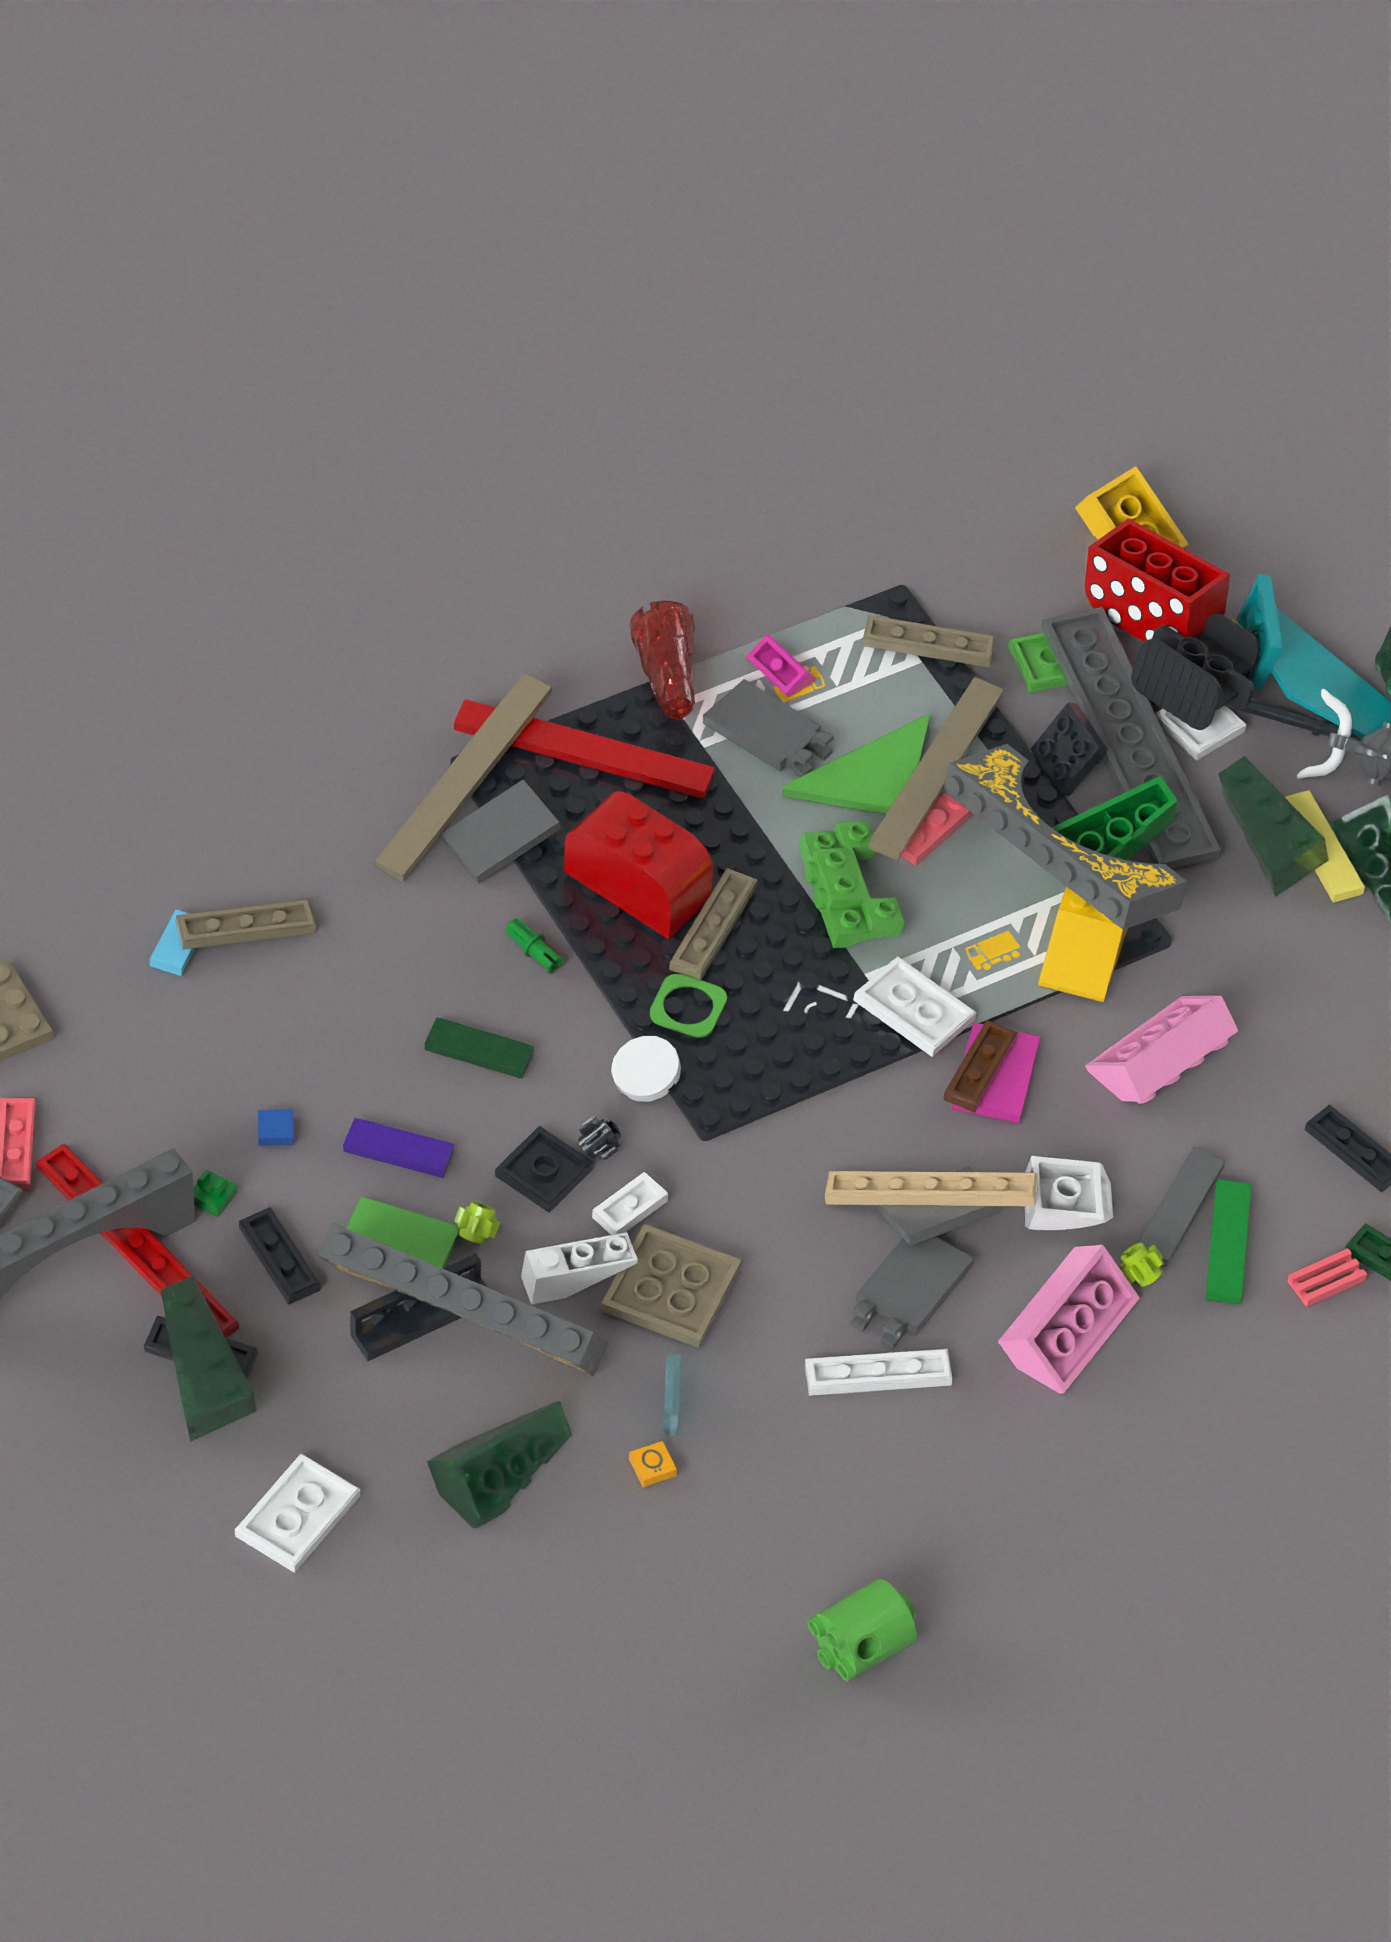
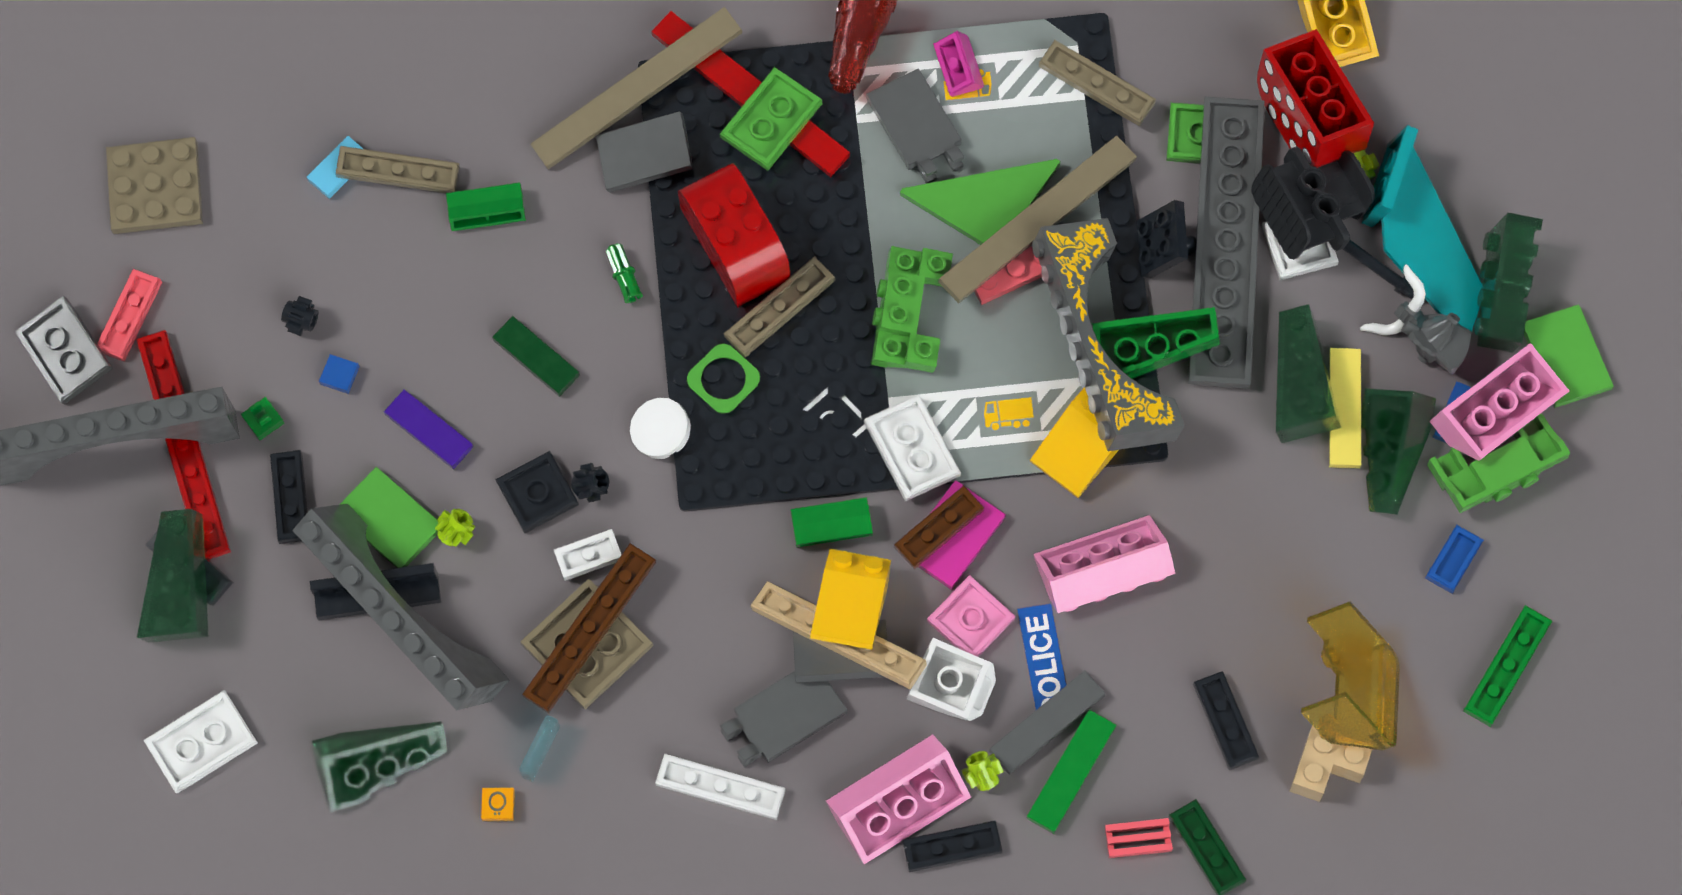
camera: 30 degrees right, 20 degrees up
(208, 1083) = (299, 315): none -> black gear
(356, 929) = (485, 206): none -> green piece
(571, 1267) = (515, 599): white slope -> none
(619, 757) = (771, 118): none -> bright green tile
(669, 1266) = (589, 628): none -> reddish brown tile
(867, 1098) = (831, 522): none -> green piece
(928, 1146) = (851, 599): none -> yellow slope
(1052, 1135) = (971, 617): none -> bright pink tile
(1139, 1149) = (1042, 652): none -> blue sticker
(1144, 1347) = (952, 846): none -> black tile

